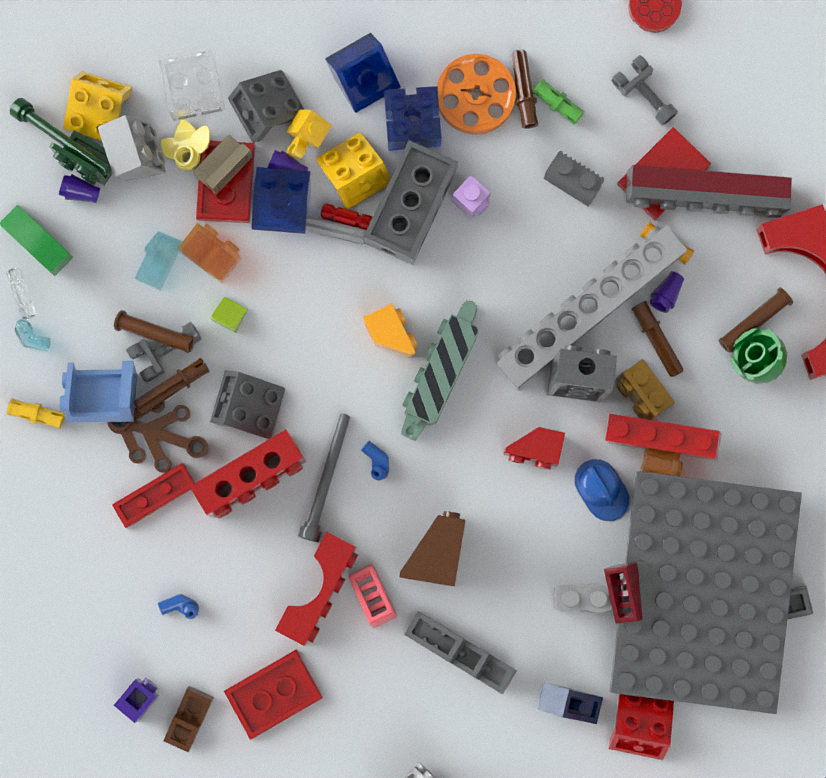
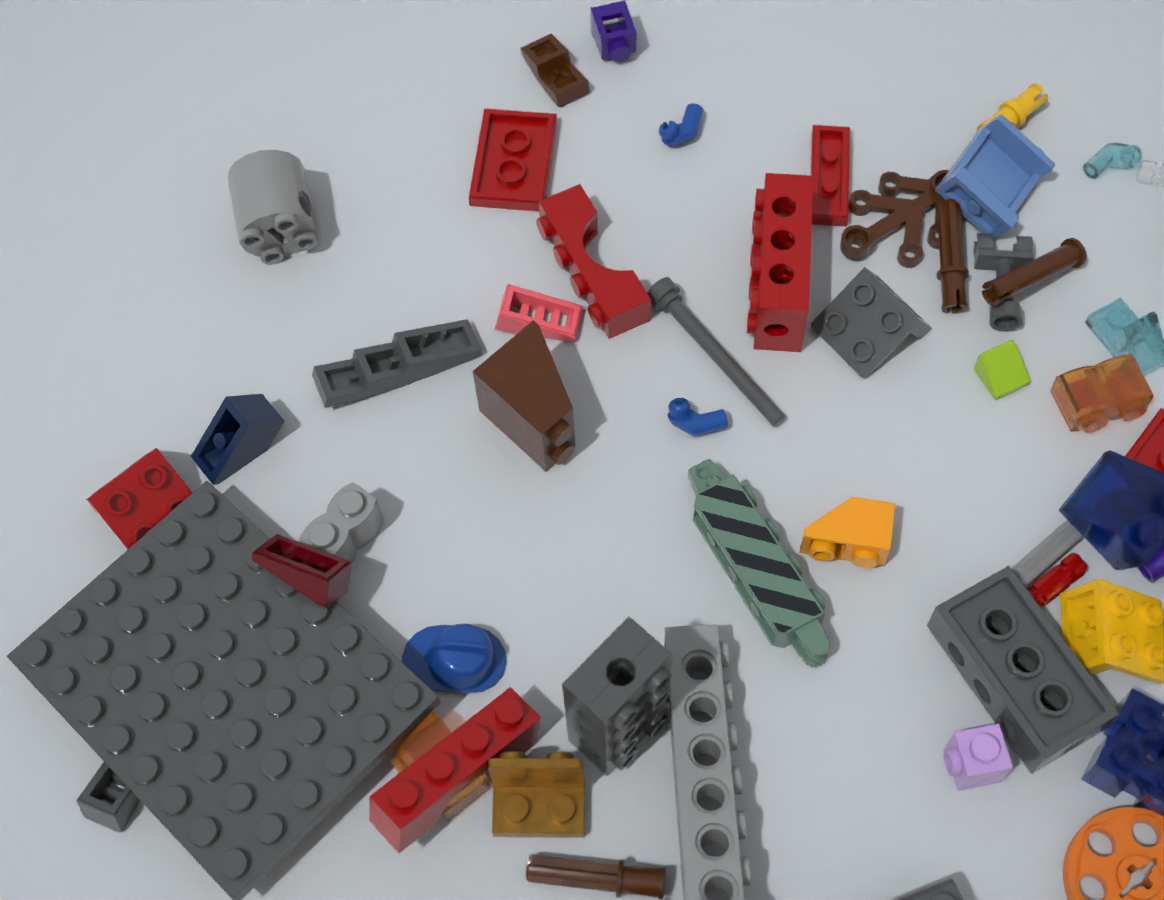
camera: 130 degrees right, 20 degrees down
(539, 446) = (567, 611): red slope -> none

